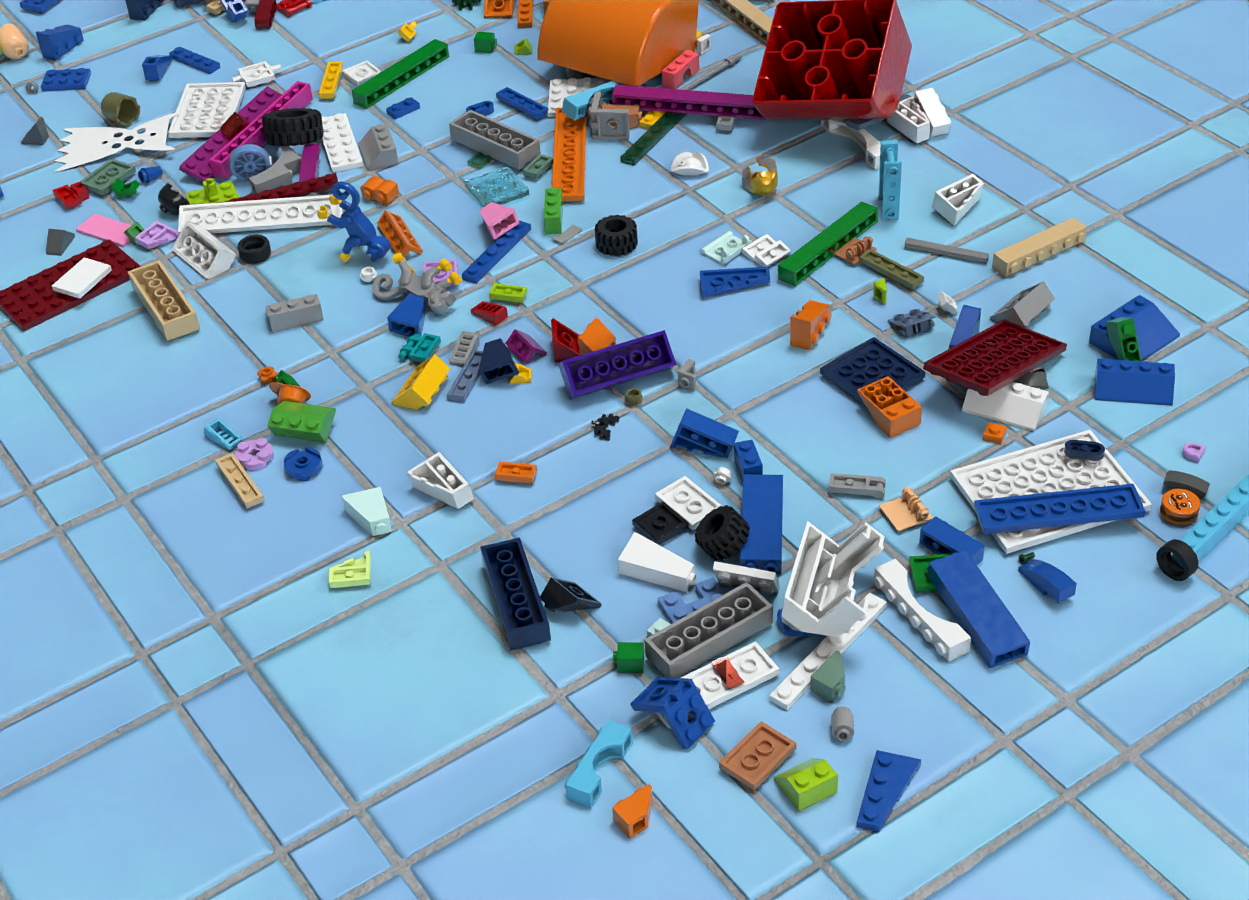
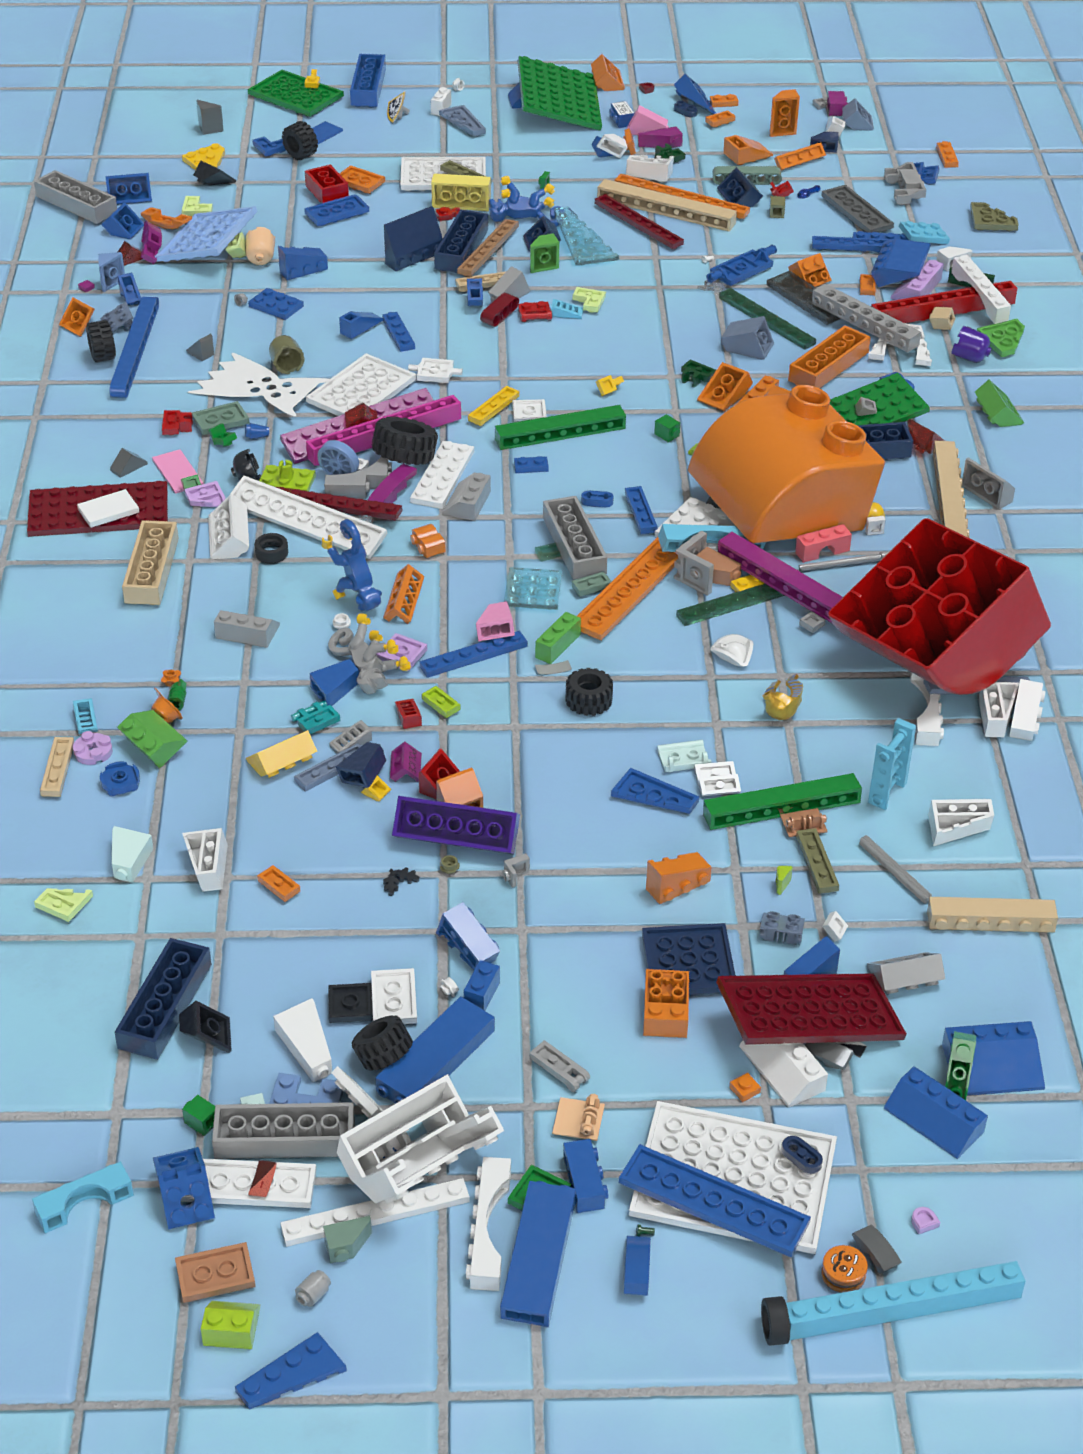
camera: 30 degrees right, 0 degrees up
(634, 812) = (69, 1258): orange slope -> none

